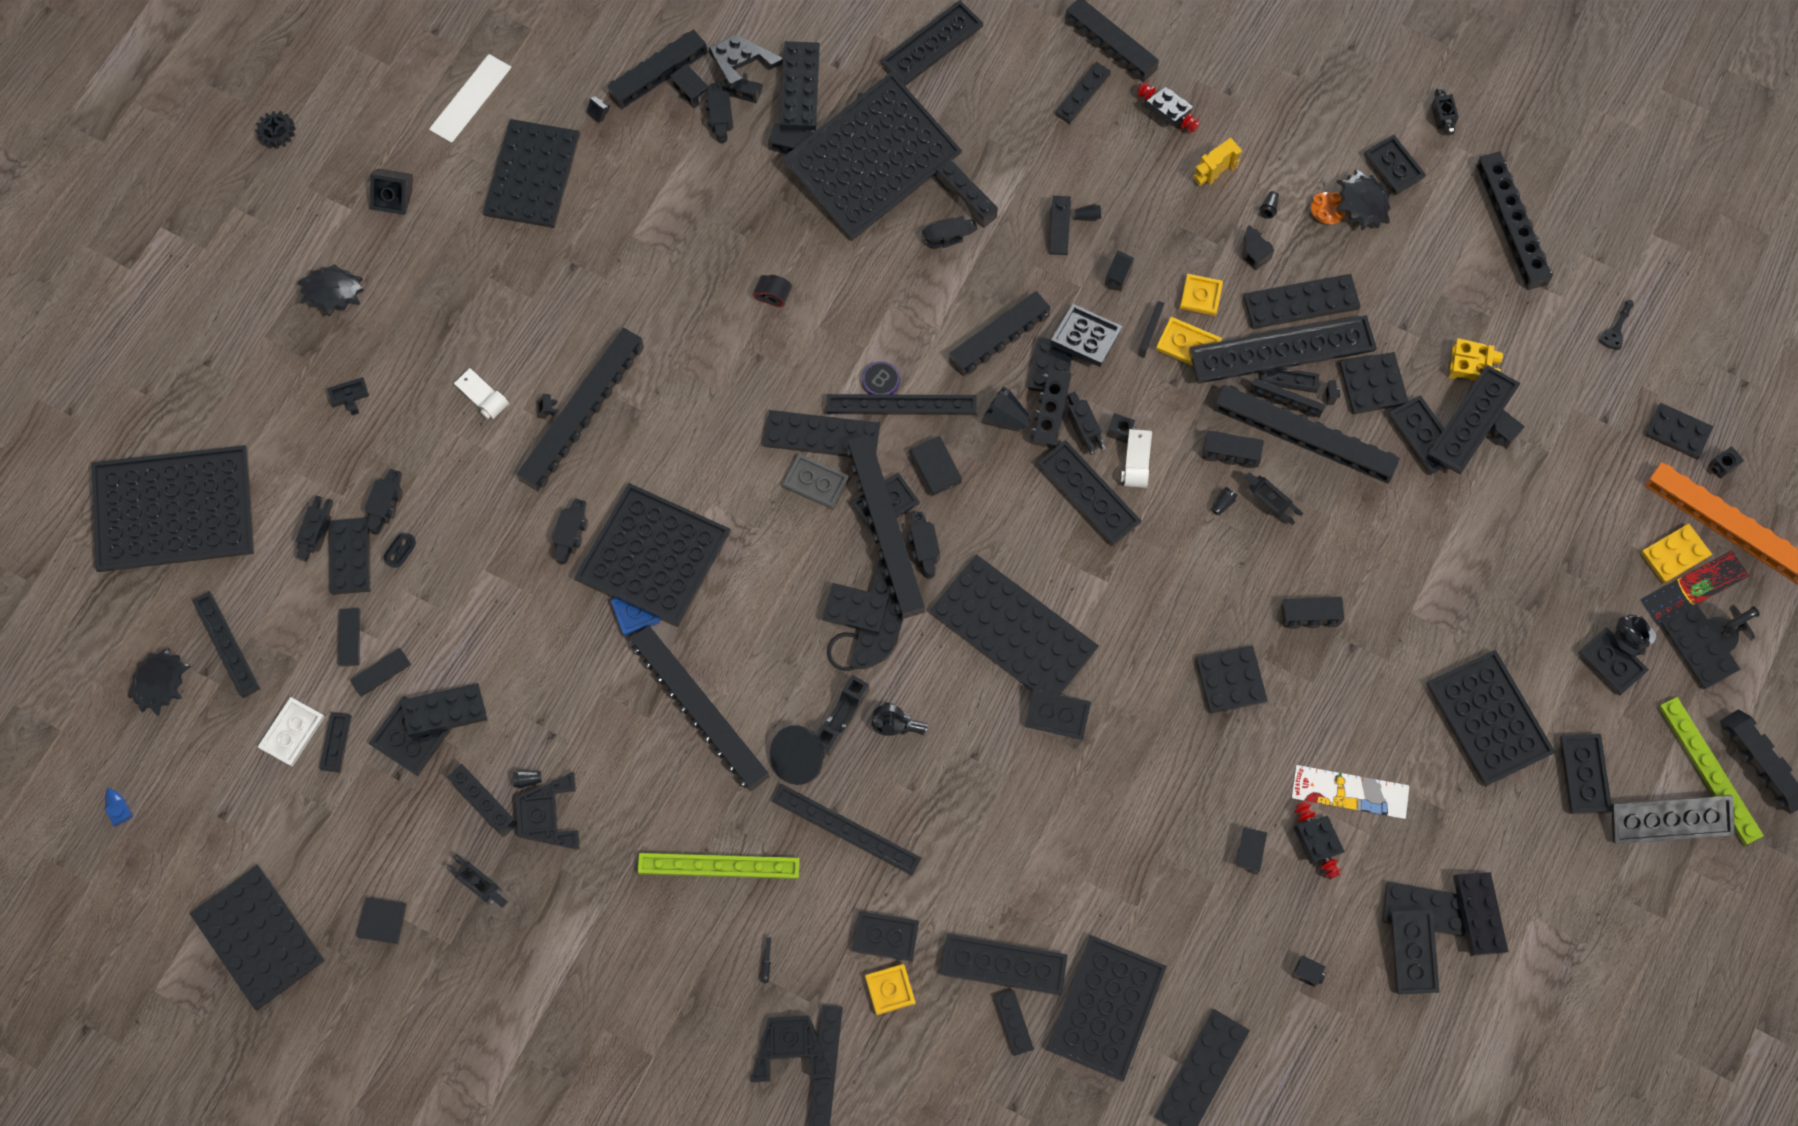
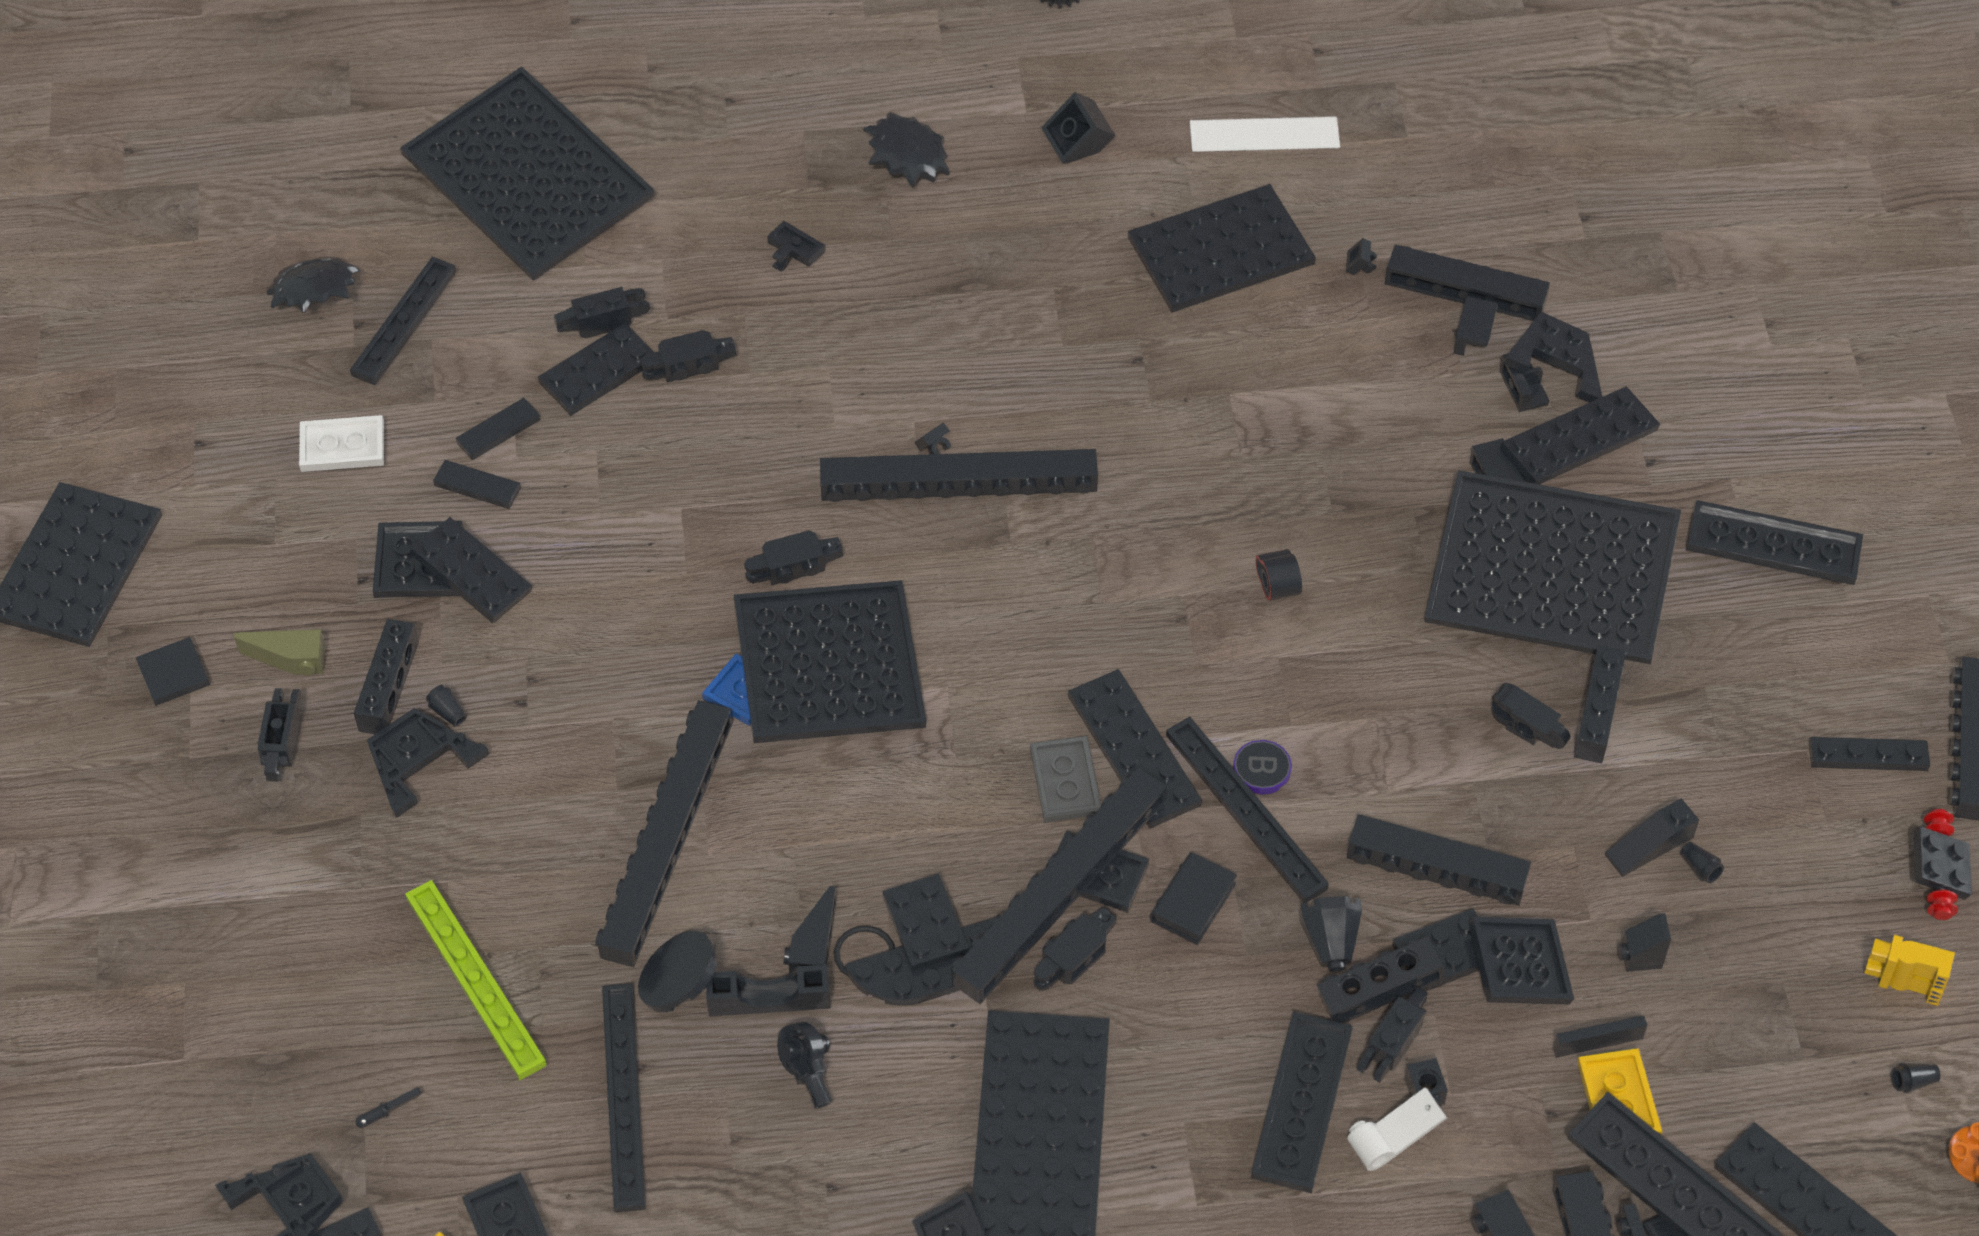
camera: 55 degrees right, 15 degrees down
(117, 807) = (141, 344): blue plate -> none
(335, 742) = (360, 494): black tile -> none
(400, 551) = (639, 408): black plate -> none
(420, 846) = (287, 650): none -> olive slope
(481, 394) = (897, 370): white door -> none
(720, 111) = (1467, 379): black hinge -> none
(826, 675) = (813, 937): none -> black slope
(1201, 295) = (1705, 1069): yellow plate -> none
(1256, 249) = (1830, 1097): black slope -> none

